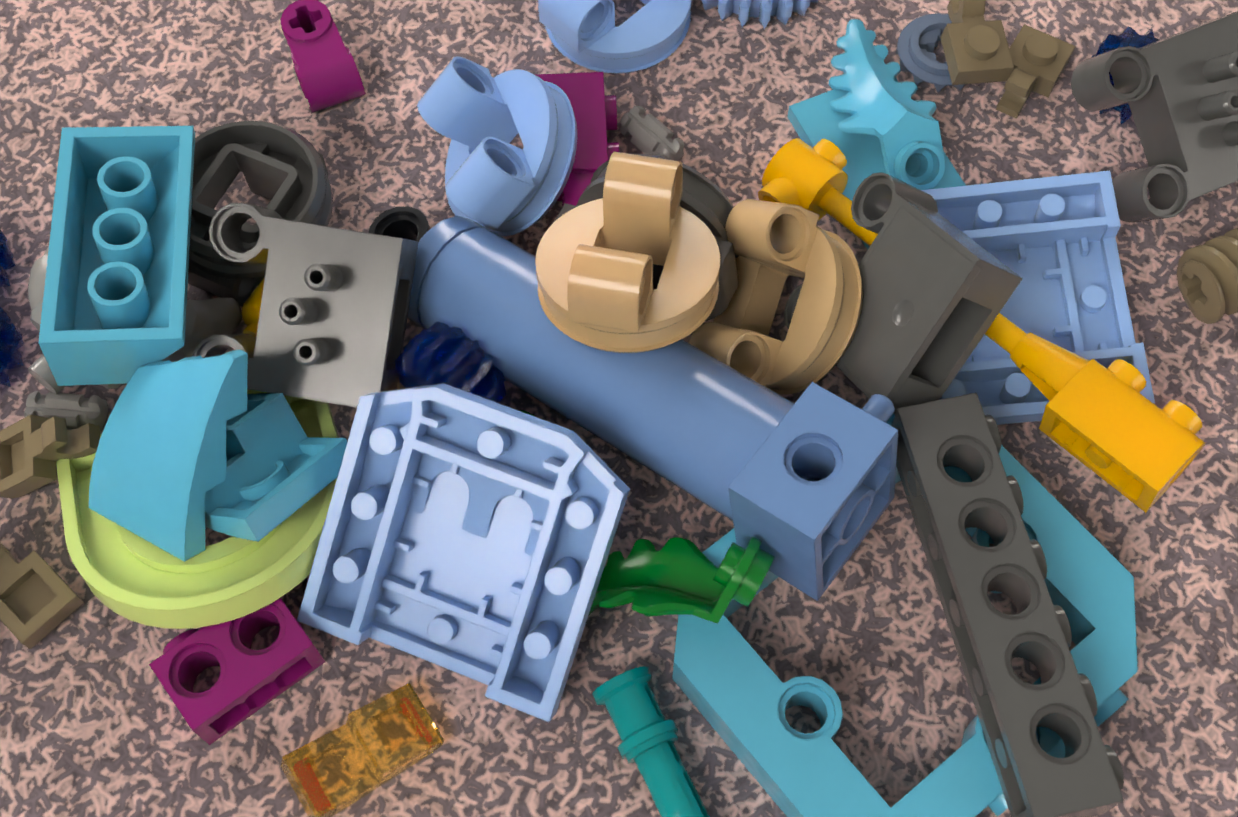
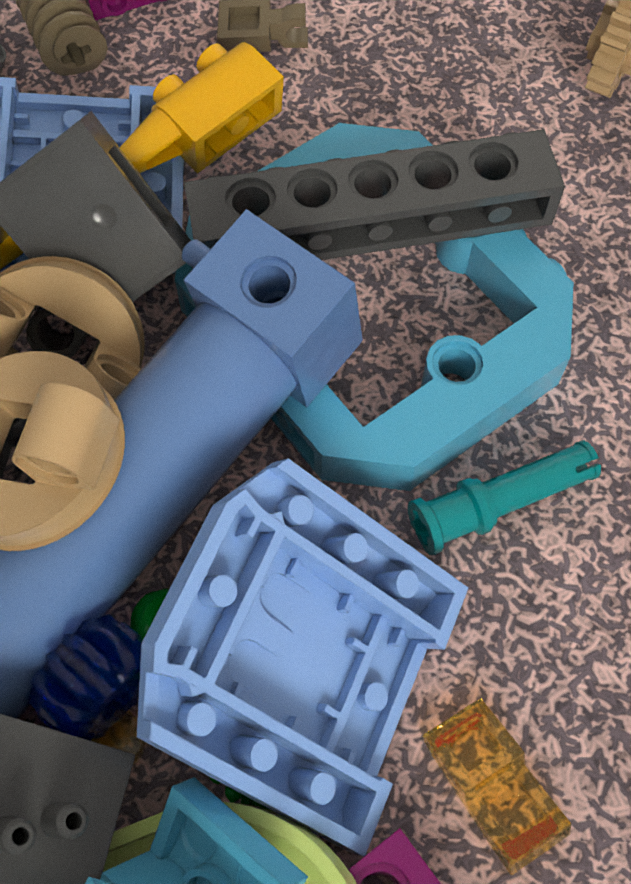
camera: 90 degrees left, 0 degrees up
(681, 579) = (350, 446): green plant -> none

